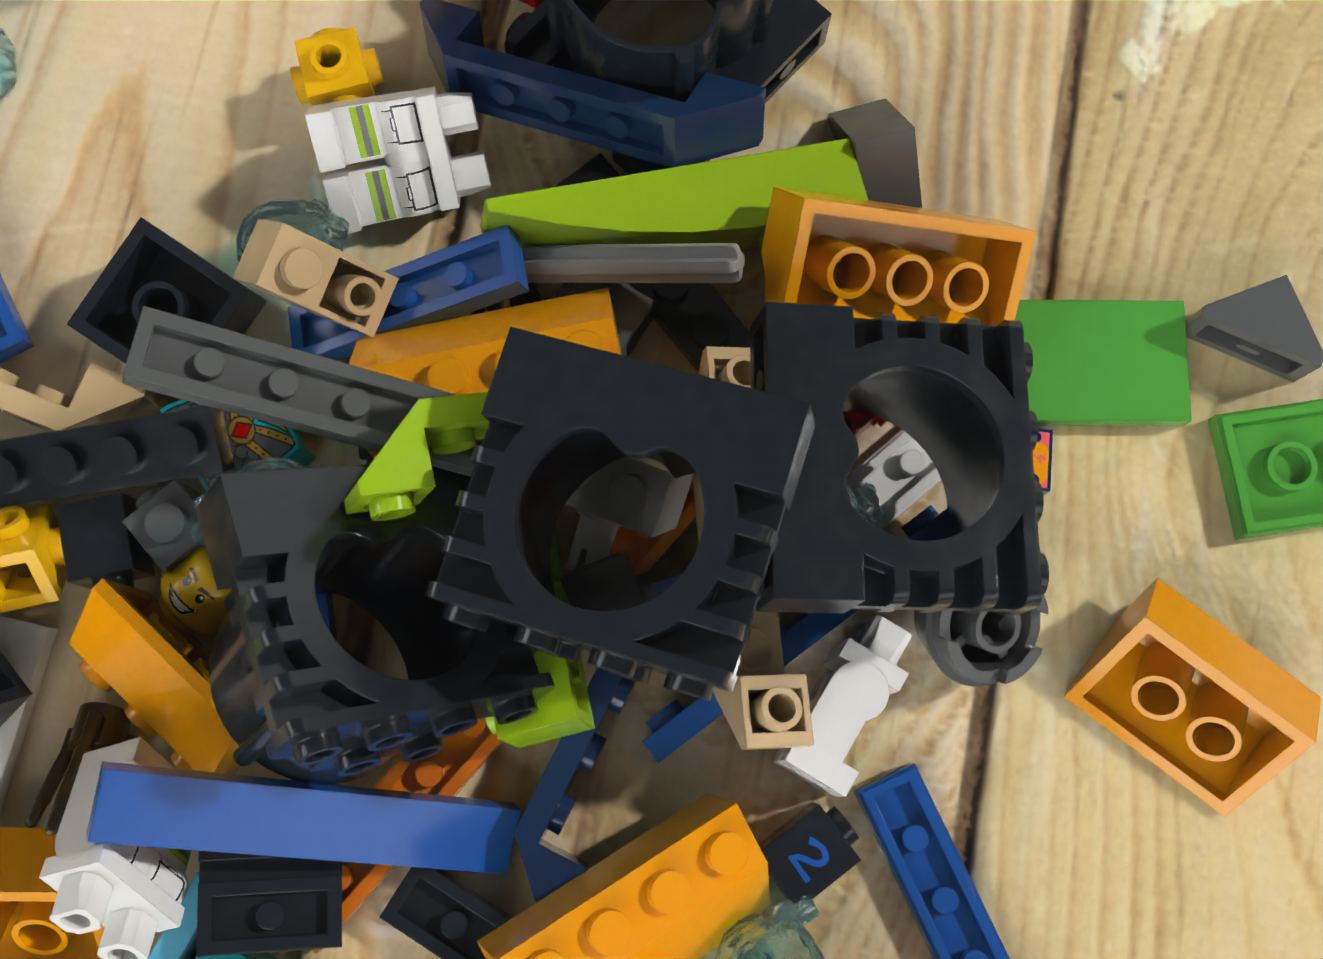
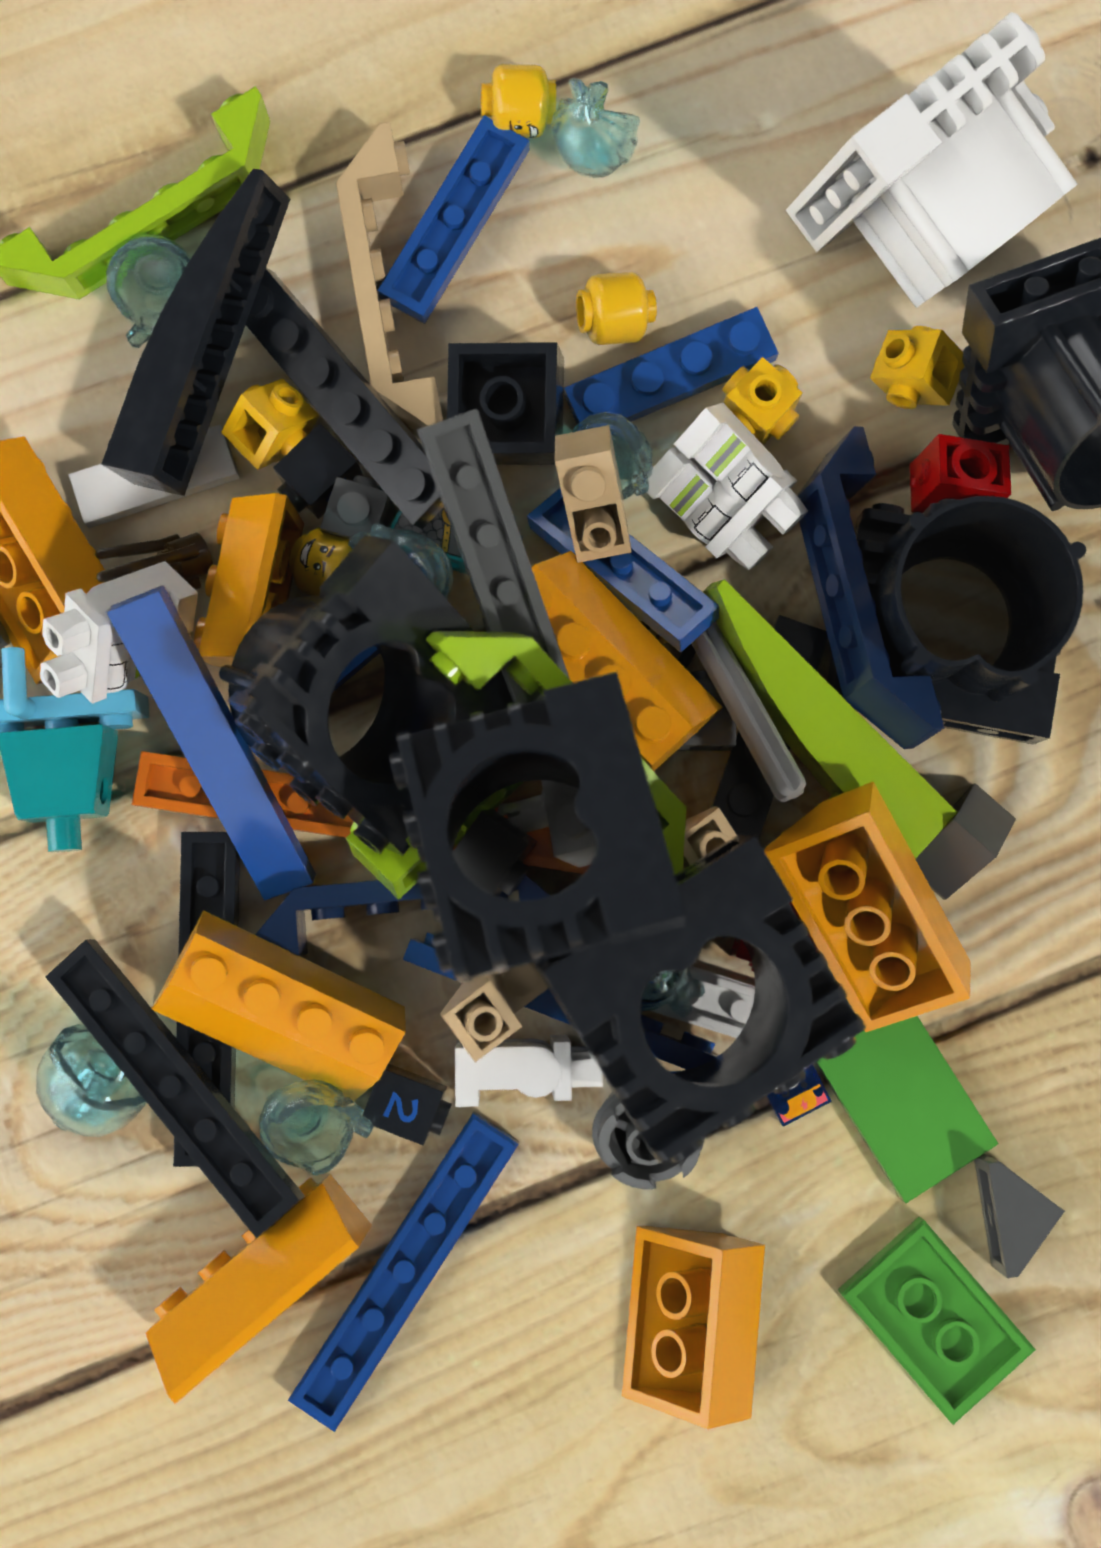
camera: 60 degrees right, 5 degrees up
(149, 153) = (615, 308): none -> yellow head
(249, 139) = (674, 370): none -> blue plate
(267, 904) = (141, 752): black plate -> none

